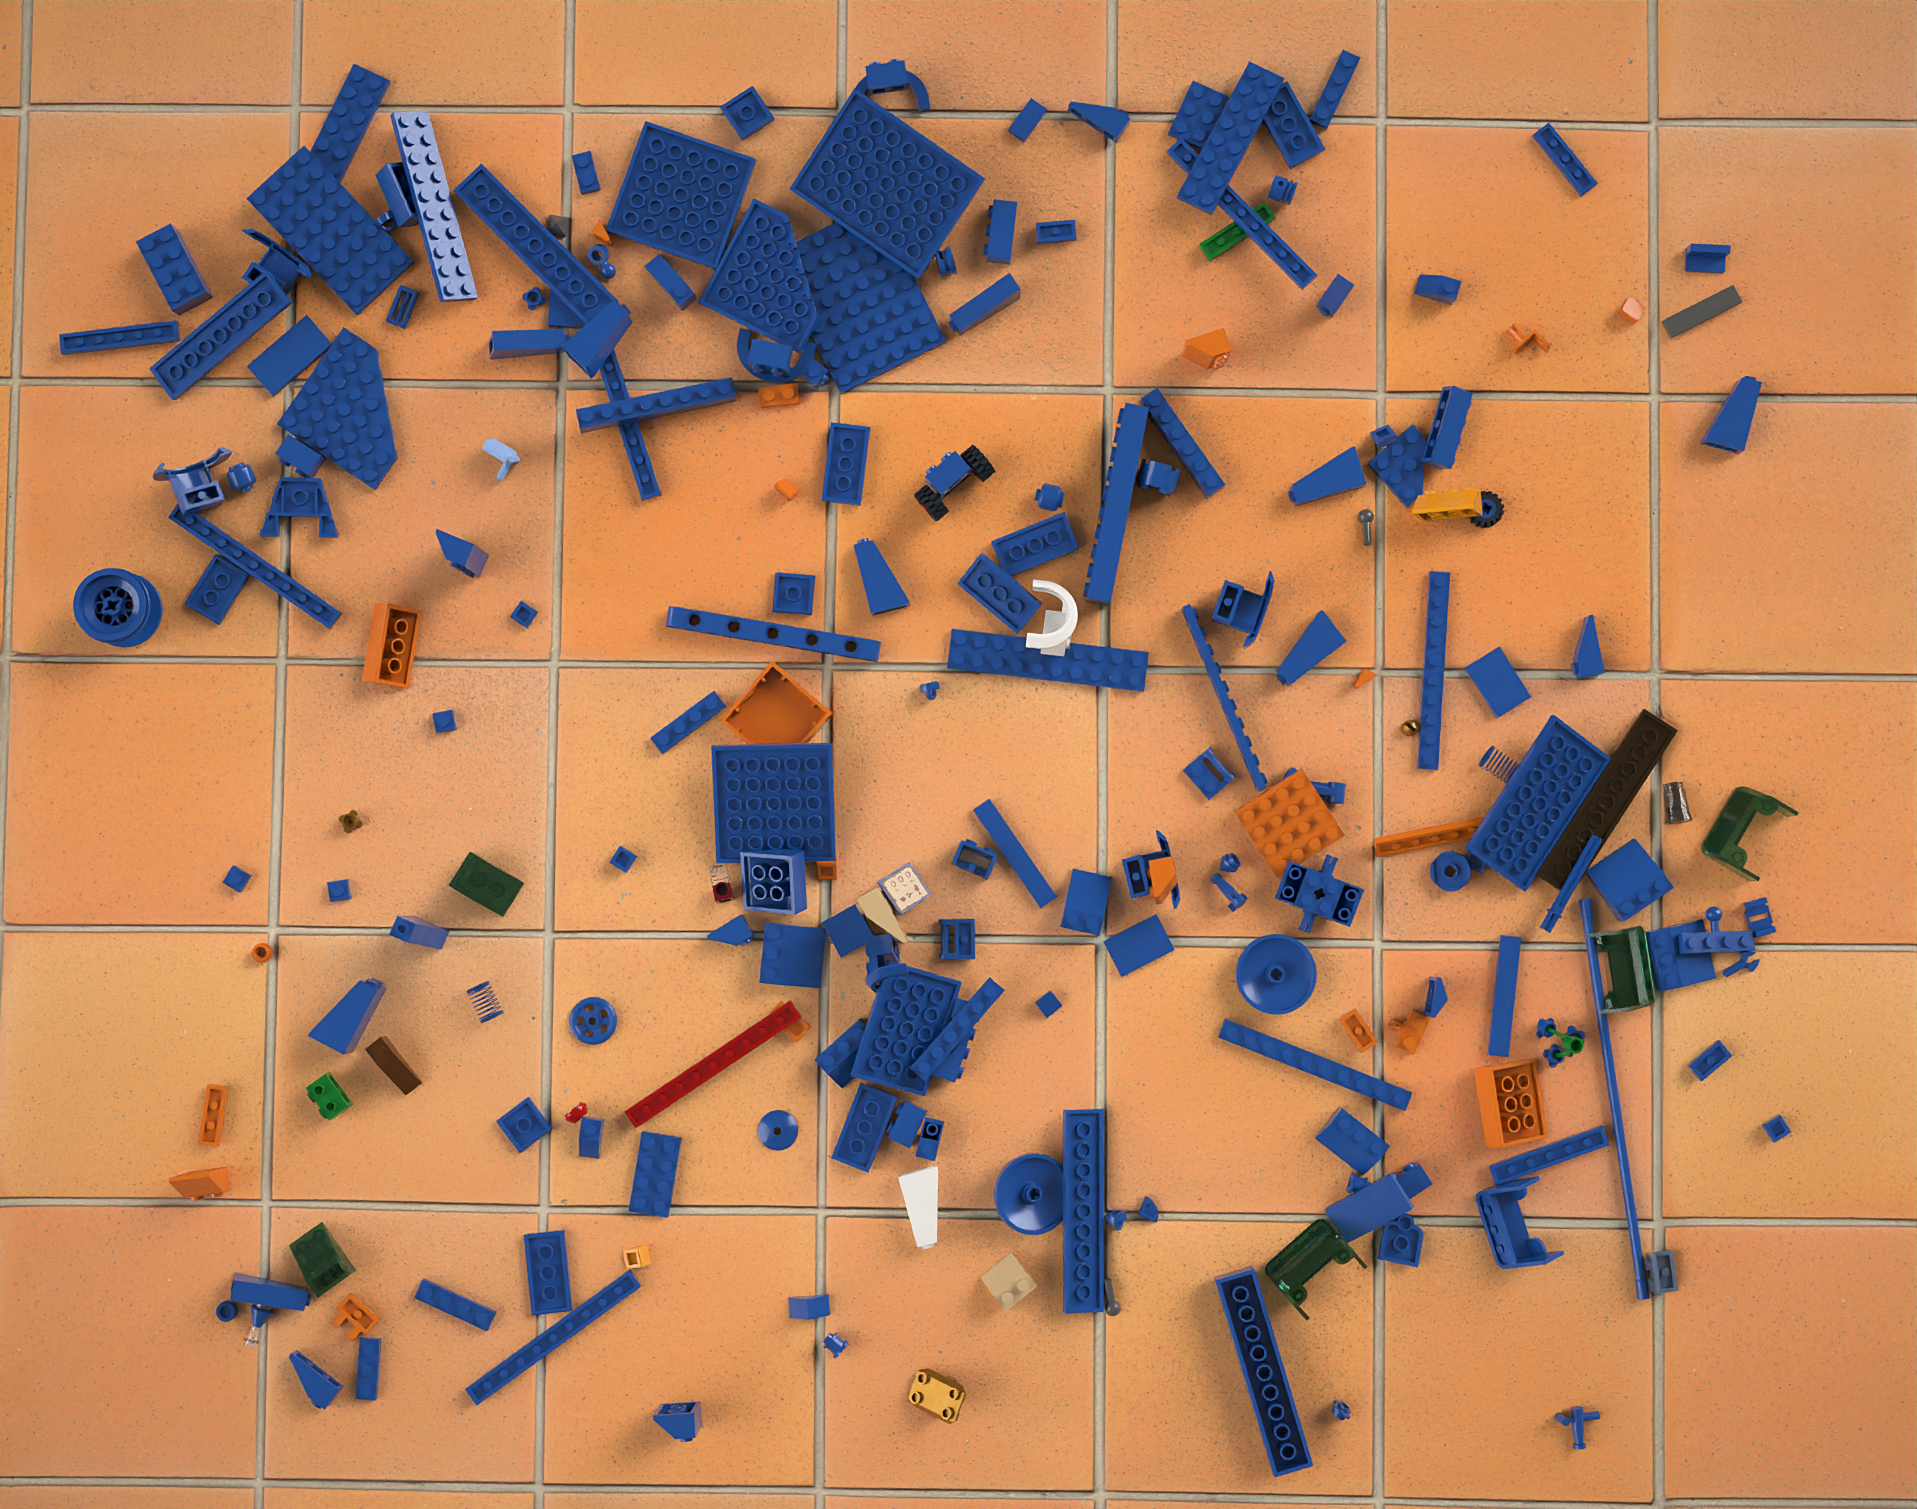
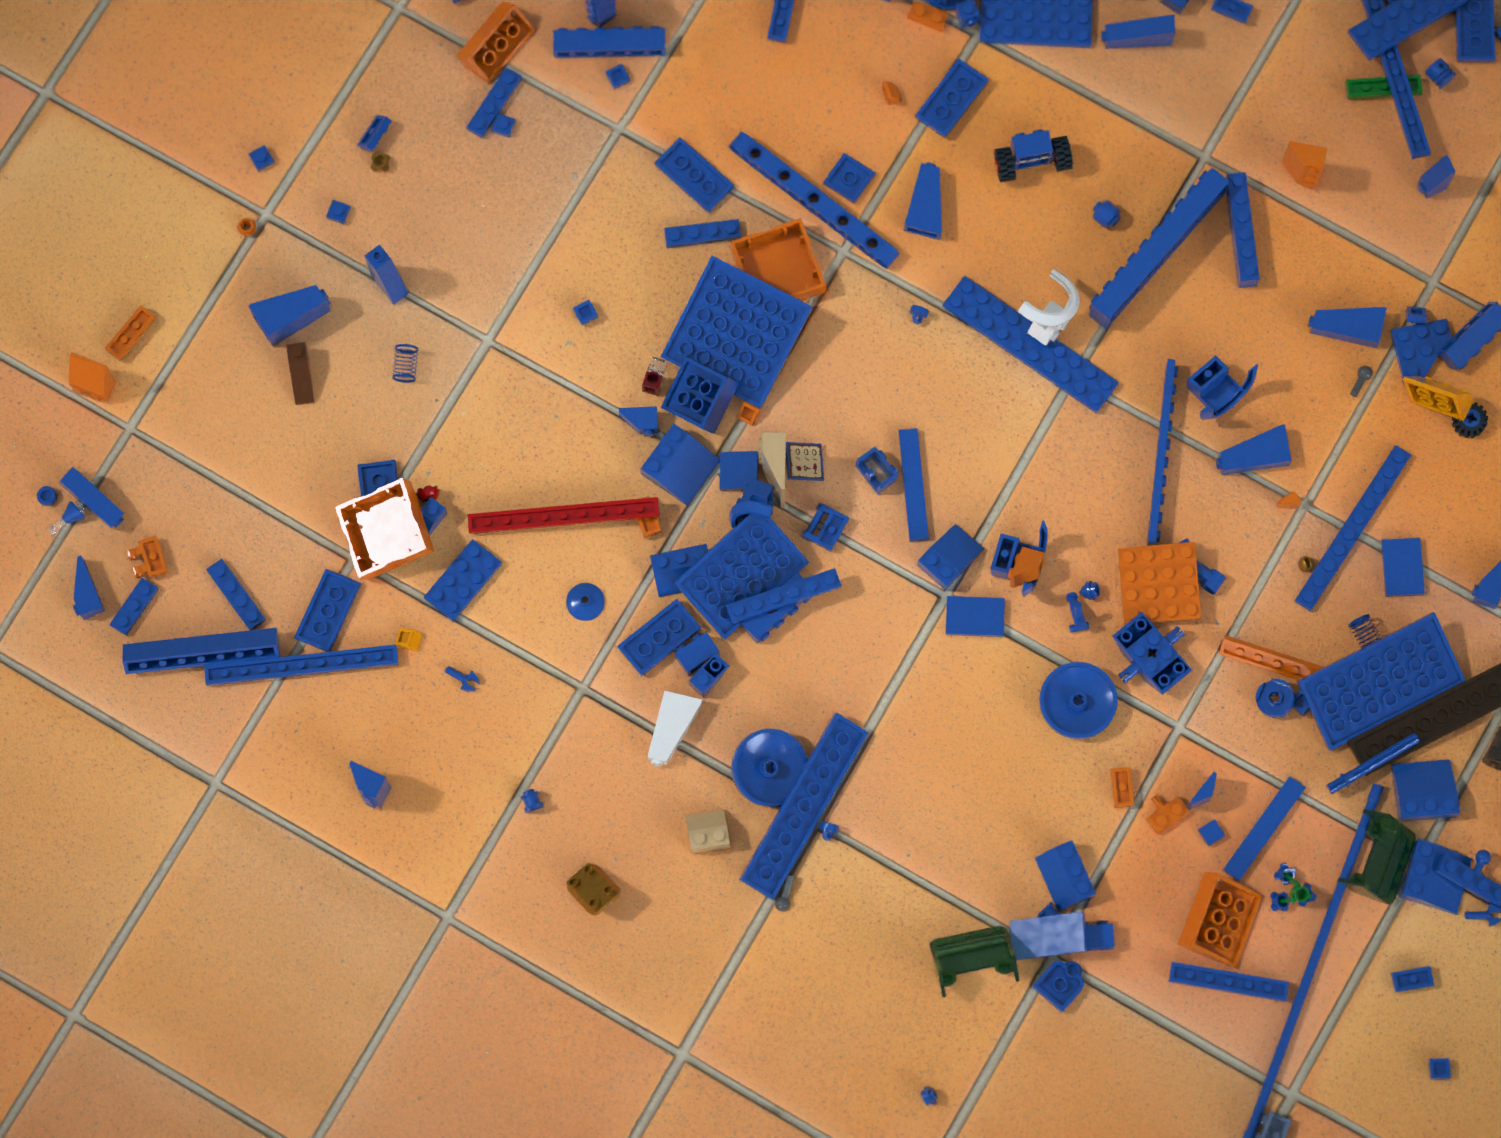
camera: 25 degrees right, 10 degrees down
(321, 1259) = (149, 496): clear green slope -> none
(328, 797) = (374, 133): none -> blue plate
(331, 1094) = (233, 368): green brick -> none
(423, 704) = (494, 102): none -> blue plate
(453, 1378) = (201, 650): none -> blue brick
(486, 883) = (461, 270): clear green slope -> none
(498, 587) = (609, 42): none -> blue brick
(557, 1171) = (385, 529): none -> tile
(579, 1030) = (498, 436): blue plate -> none
(649, 670) = (694, 175): none -> blue tile
(707, 1265) = (463, 678): none -> blue bar
(809, 1306) = (528, 758): blue slope -> none
(999, 593) = (1020, 267): blue plate -> none
(1035, 544) = (1072, 246): blue plate -> none
(1048, 1004) = (871, 621): blue slope -> none
(1148, 1210) = (859, 838): blue tile -> none
(1157, 476) = (1206, 244): blue brick -> none
(1203, 777) = (1108, 512): blue plate -> none
(1263, 1371) = (881, 1023): blue brick -> none
(1315, 1064) = (1069, 796): blue plate -> none
(1459, 1026) = (1211, 832): none -> blue tile
(1507, 1227) = (1159, 1019): blue windscreen -> none

